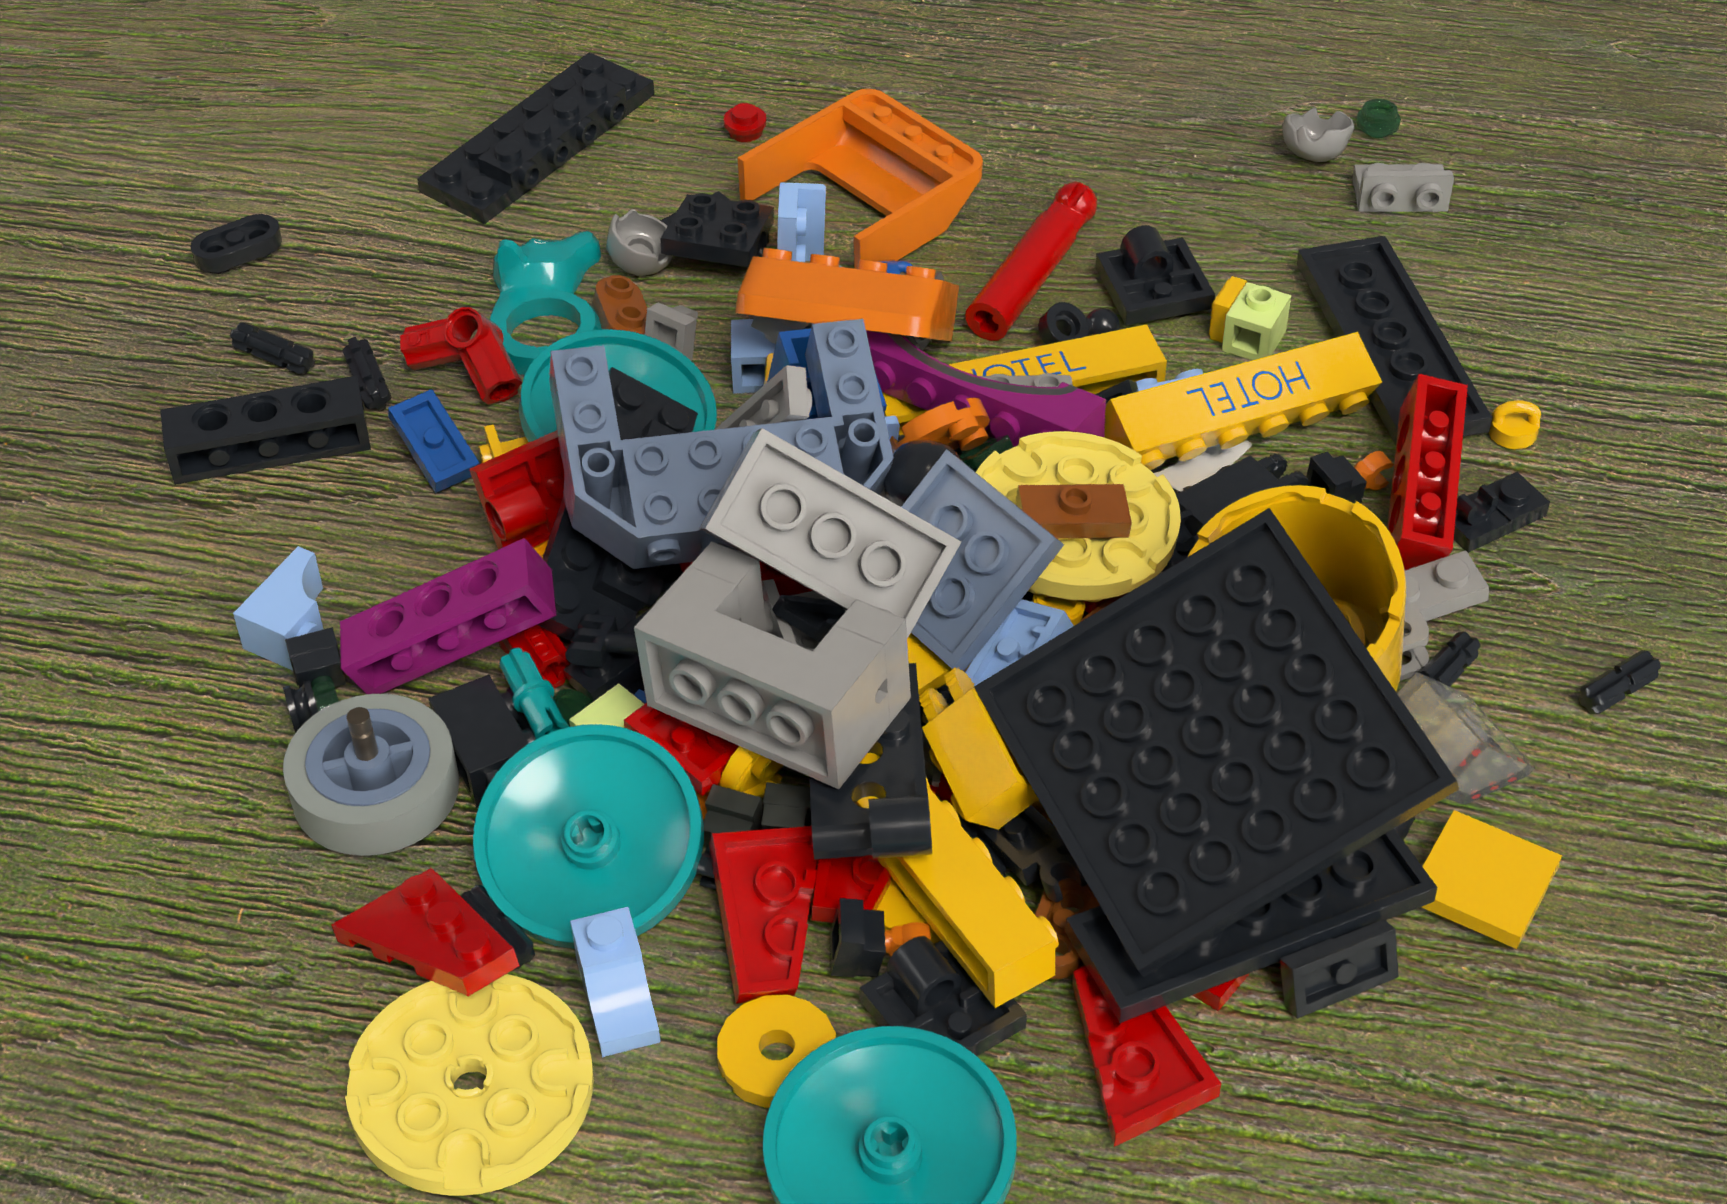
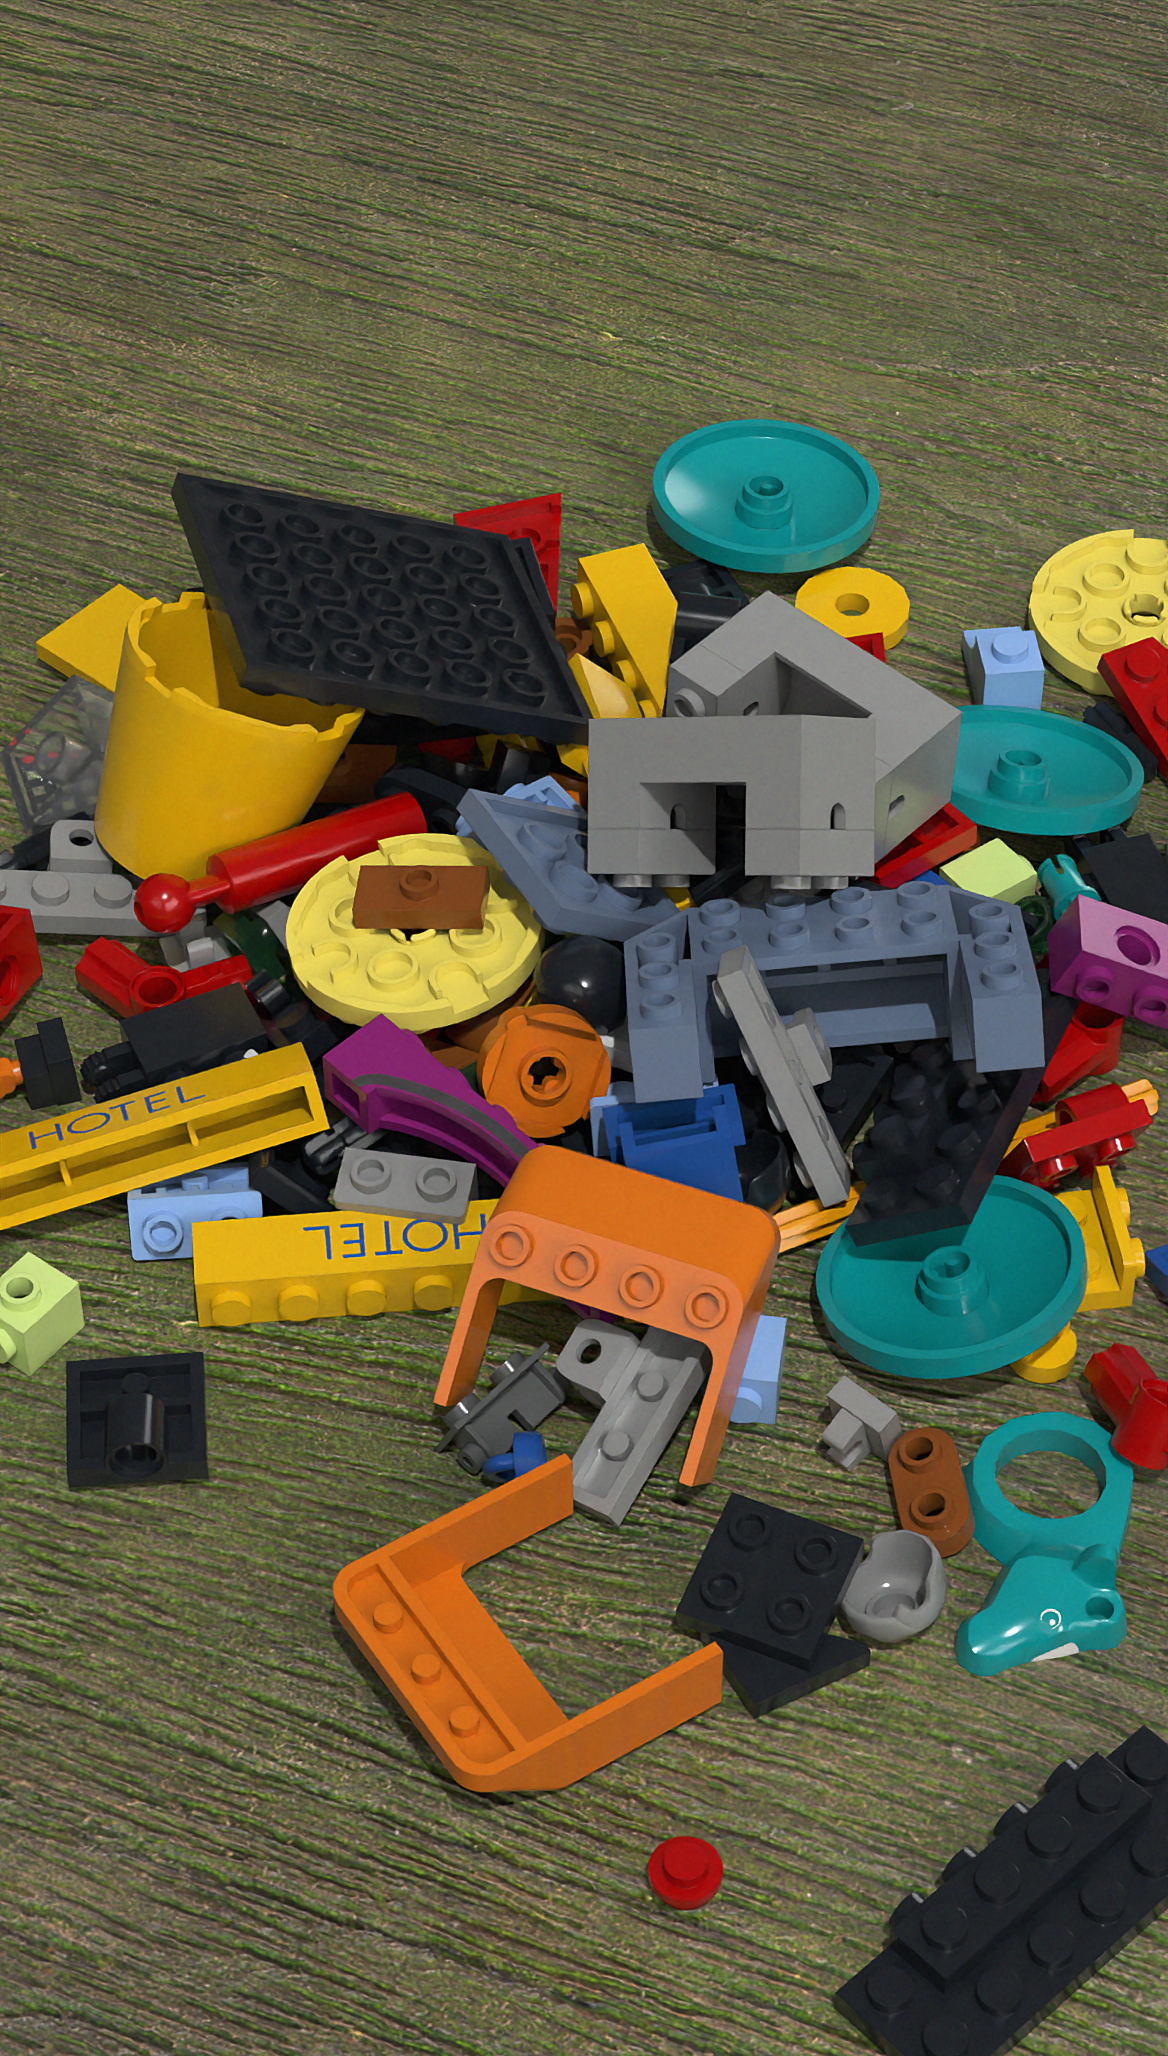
camera: 170 degrees left, 0 degrees up
(801, 219) = (650, 1534): light blue bracket -> none
(1031, 262) = (299, 1478): red piece -> none
(1074, 324) = (293, 1353): black plate -> none
(1222, 305) = (57, 1338): yellow tile -> none

